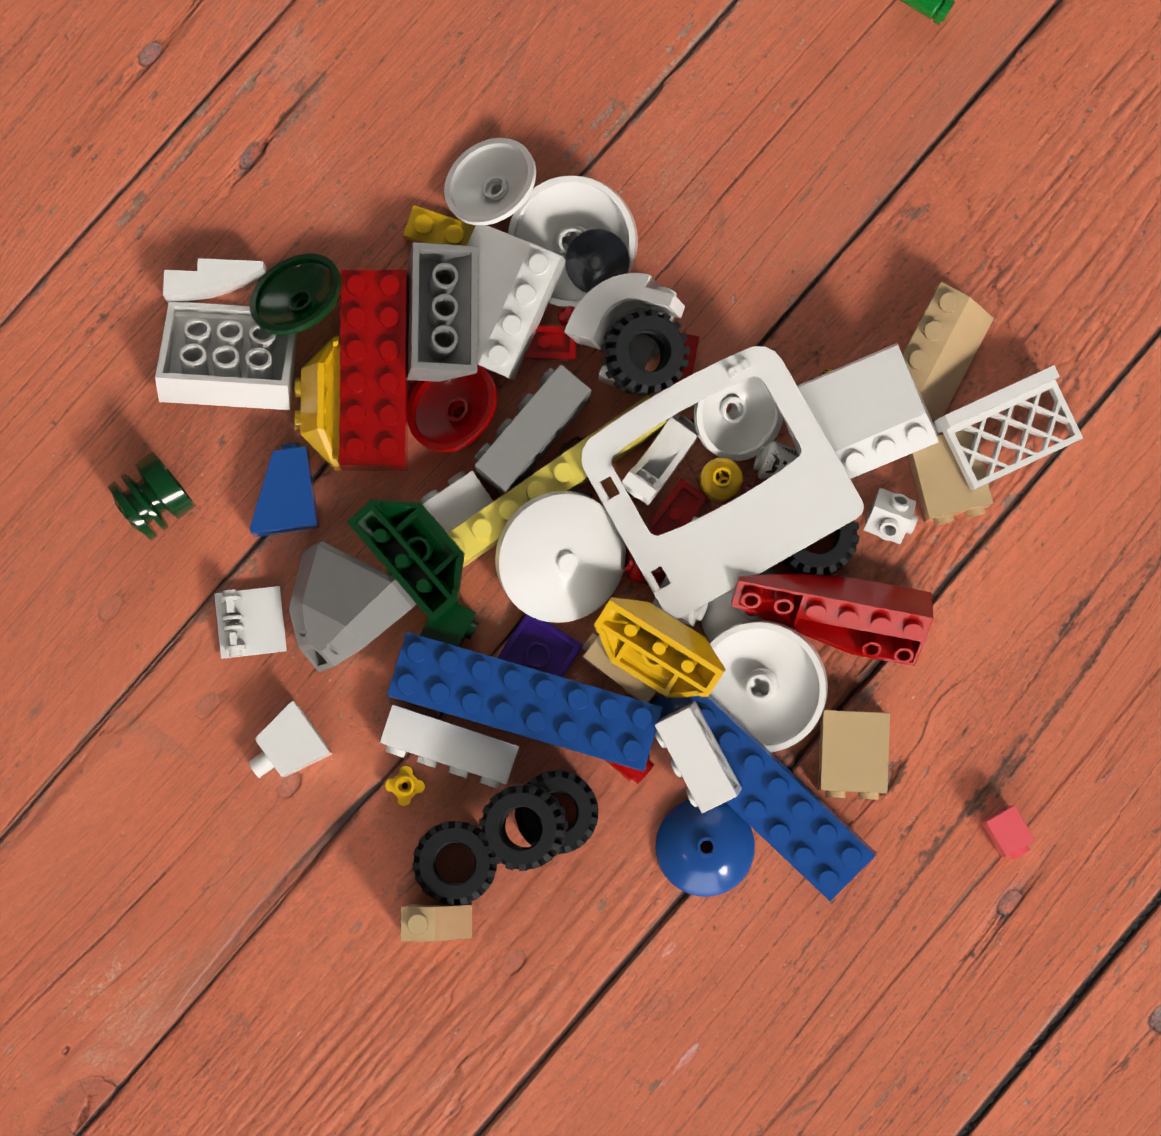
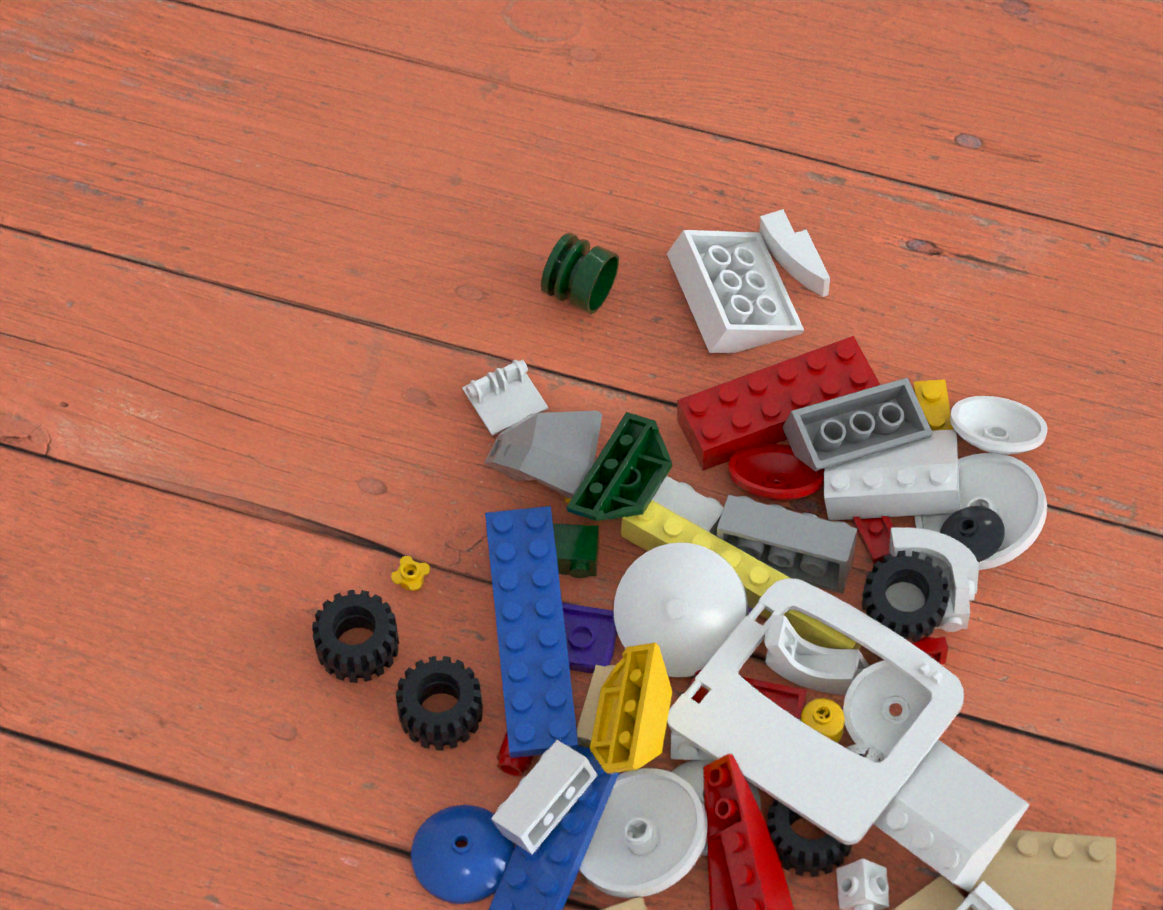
camera: 75 degrees right, 25 degrees down
(287, 494) = (632, 378): blue slope -> none
(288, 744) = (409, 465): white torso -> none
(295, 294) = (813, 314): dark green dish -> none
(321, 402) = (728, 365): yellow wedge -> none
(436, 922) = (292, 634): tan slope -> none
(450, 745) = (463, 593): white brick -> none
(495, 834) = (408, 637): black tyre -> none

